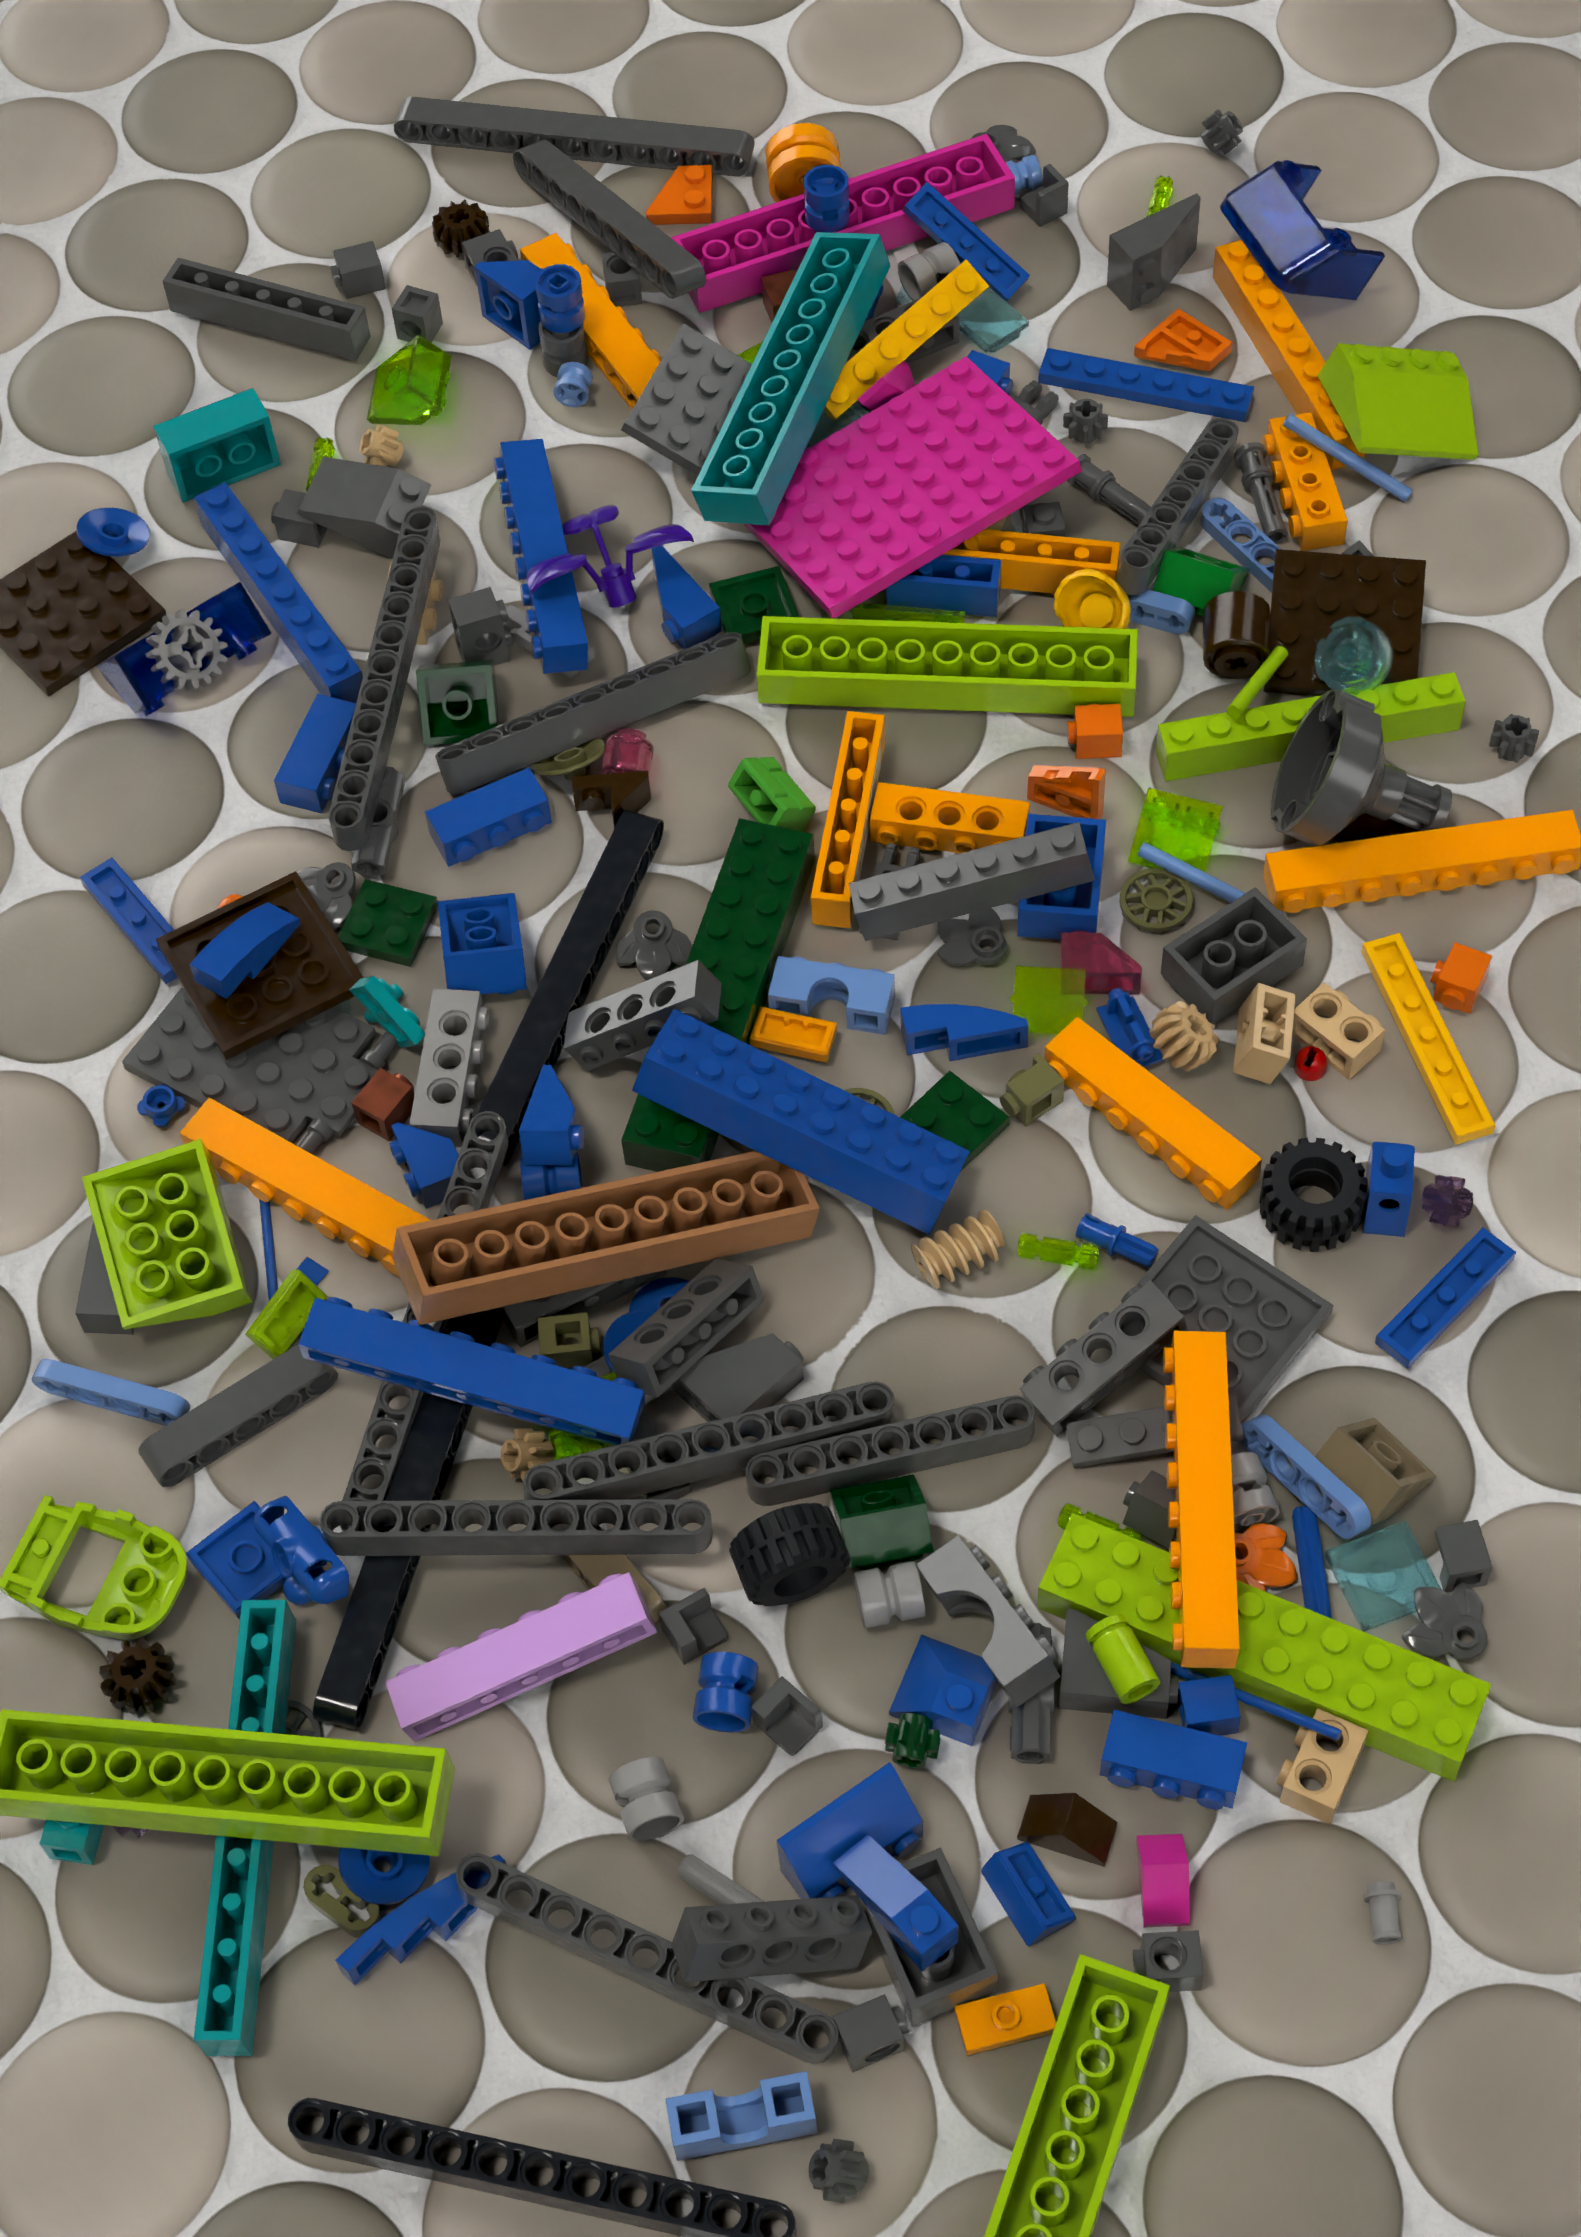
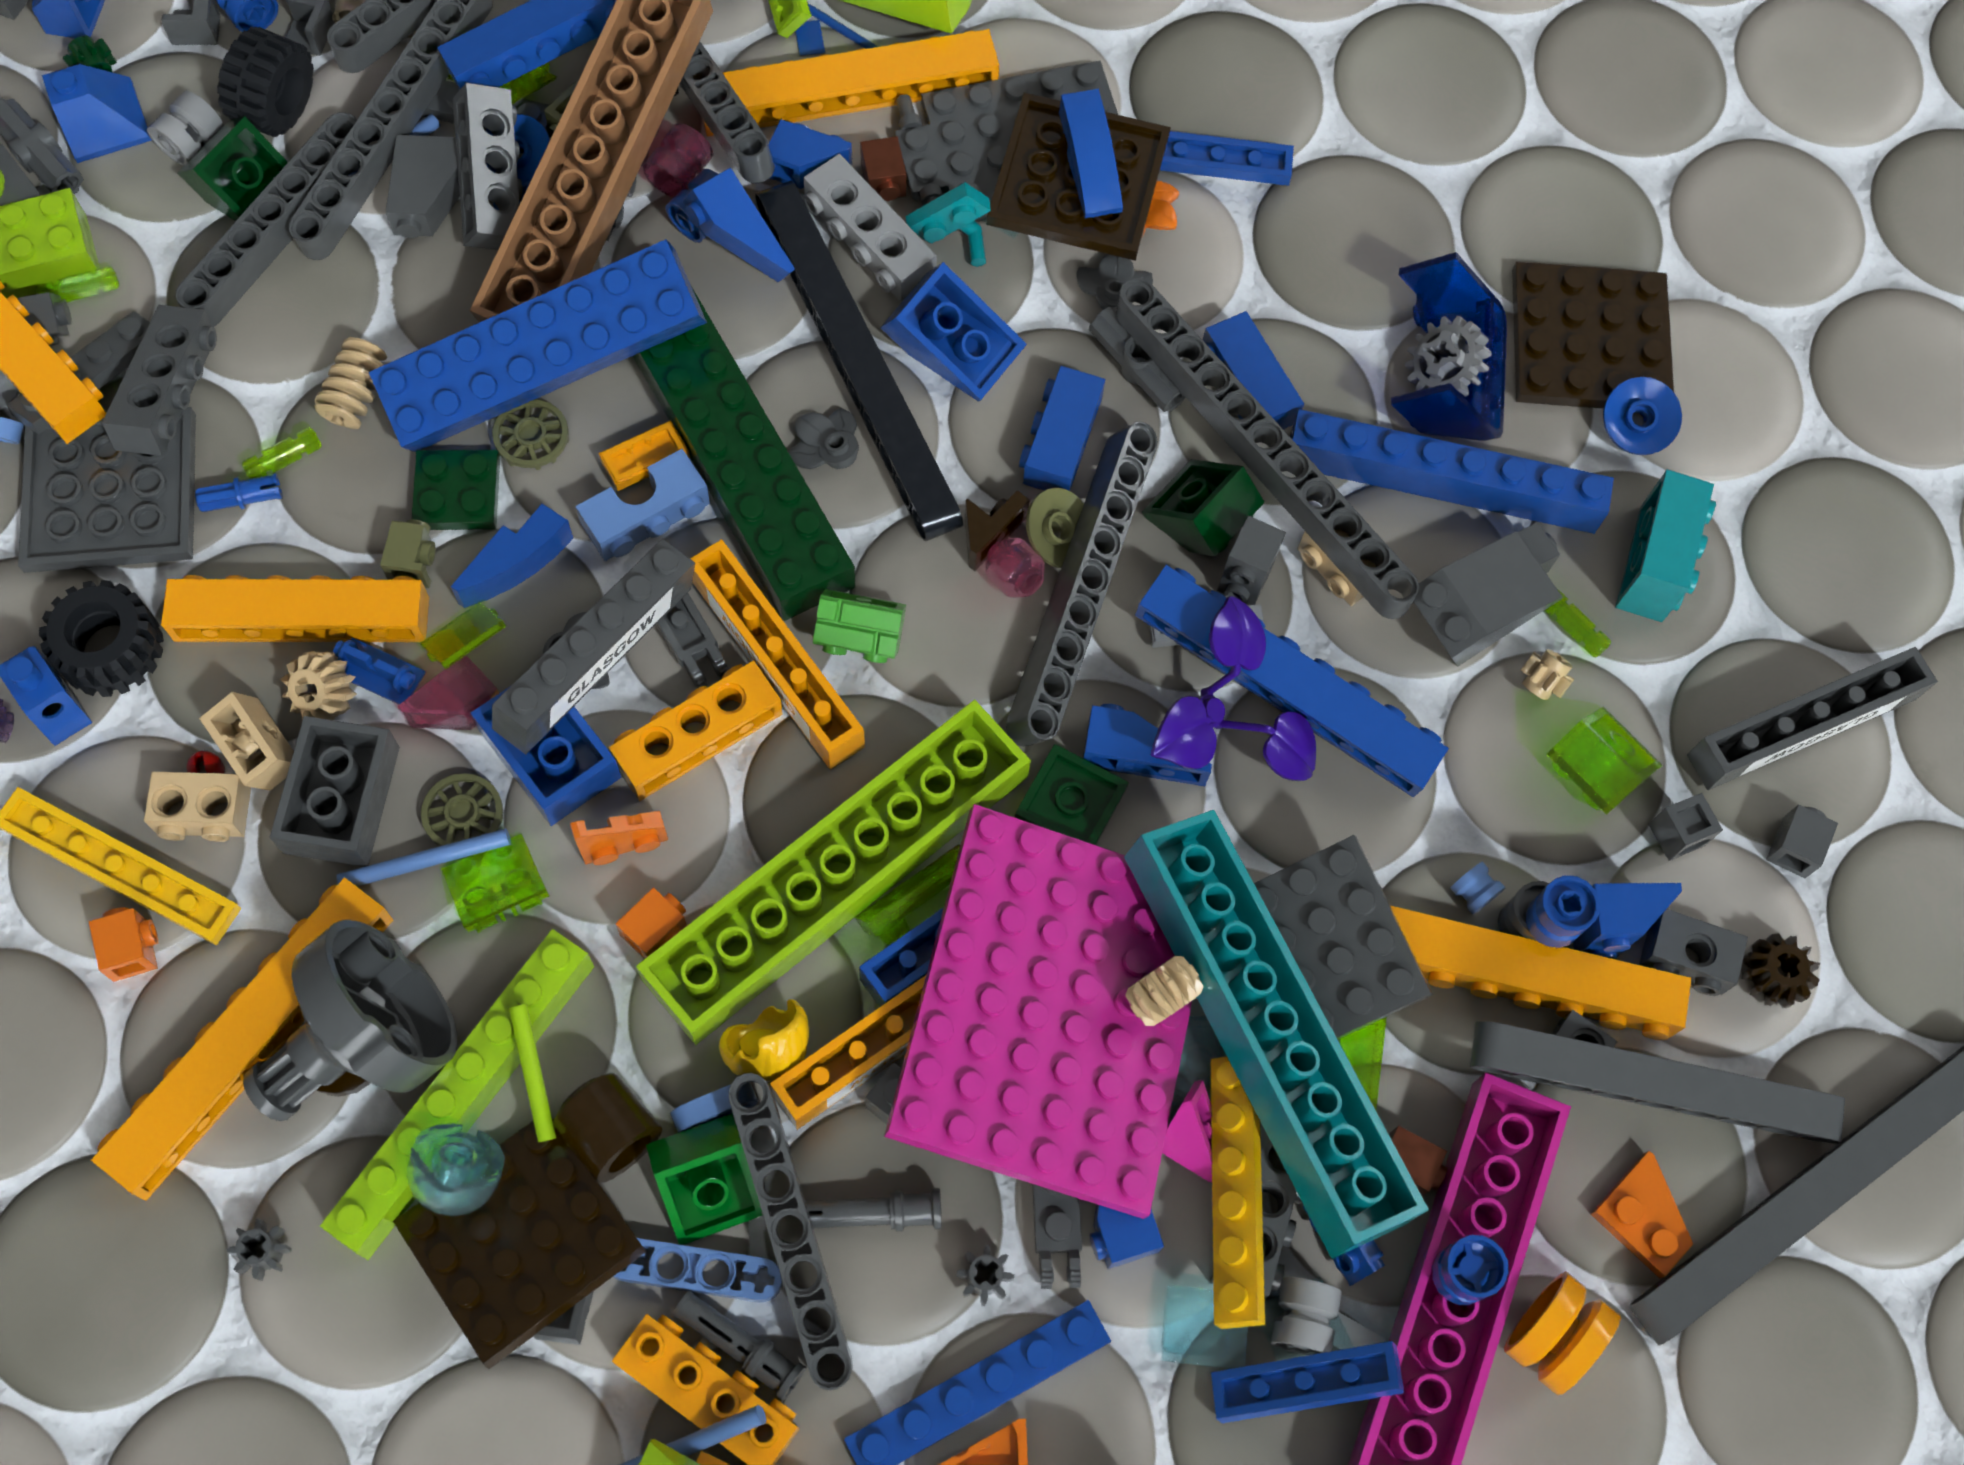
camera: 125 degrees right, 10 degrees up
(158, 1096) = (1036, 50): blue plate -> none
(388, 922) = (1045, 302): dark green plate -> none
(637, 1014) = (744, 337): dark grey brick -> none
(834, 427) = (1164, 991): none -> tan gear
(1013, 1654) = (135, 166): arch -> none

